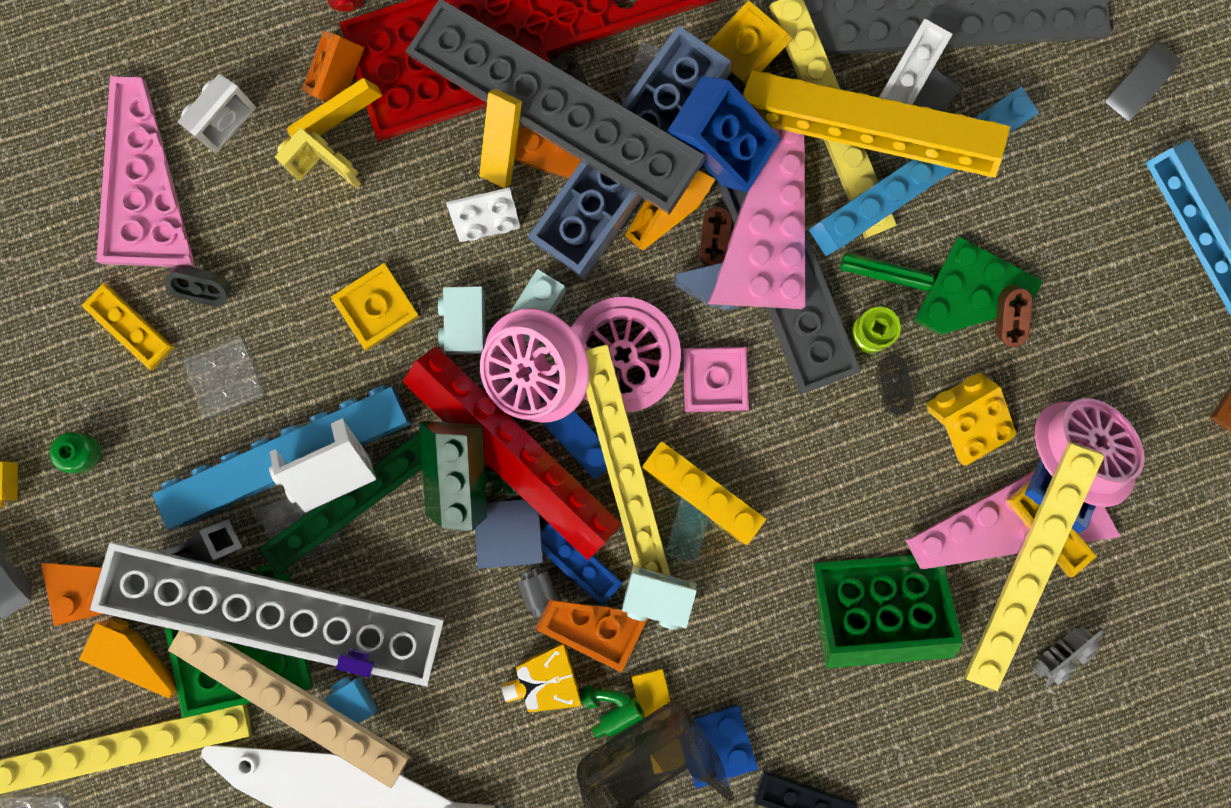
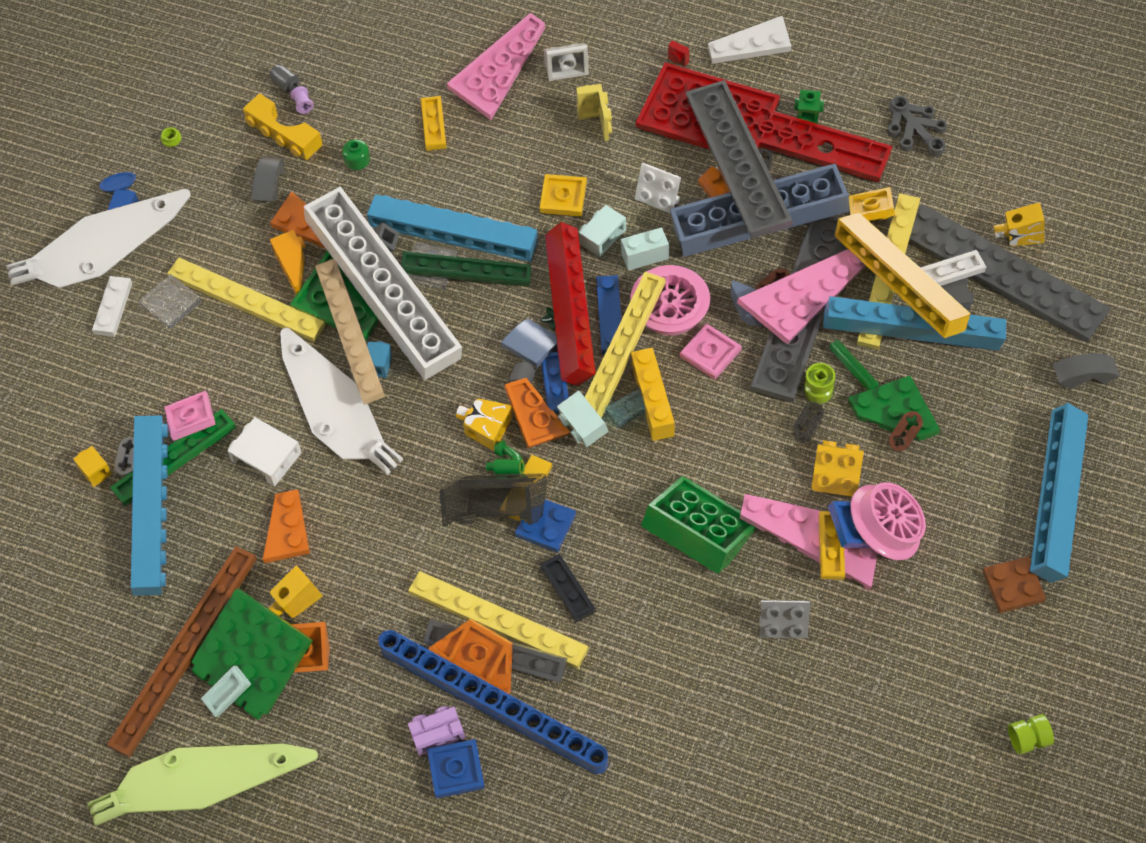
camera: 45 degrees right, 25 degrees down
(198, 285) = (488, 129): pearl dark grey plate -> none
(223, 378) = (457, 174): clear plate -> none
(325, 472) = (469, 237): white panel -> none
(332, 66) = (642, 78): orange slope -> none
(337, 108) = (630, 95): yellow tile -> none
(355, 662) = (402, 323): dark purple plate -> none
(453, 474) = (532, 287): dark green slope -> none
(500, 138) = (697, 157): yellow tile -> none
(559, 341) = (612, 259): bright pink piece -> none
(653, 222) = (764, 248): light orange slope -> none
(726, 131) = (815, 226): blue brick -> none
(1034, 564) = (800, 546): light yellow plate -> none

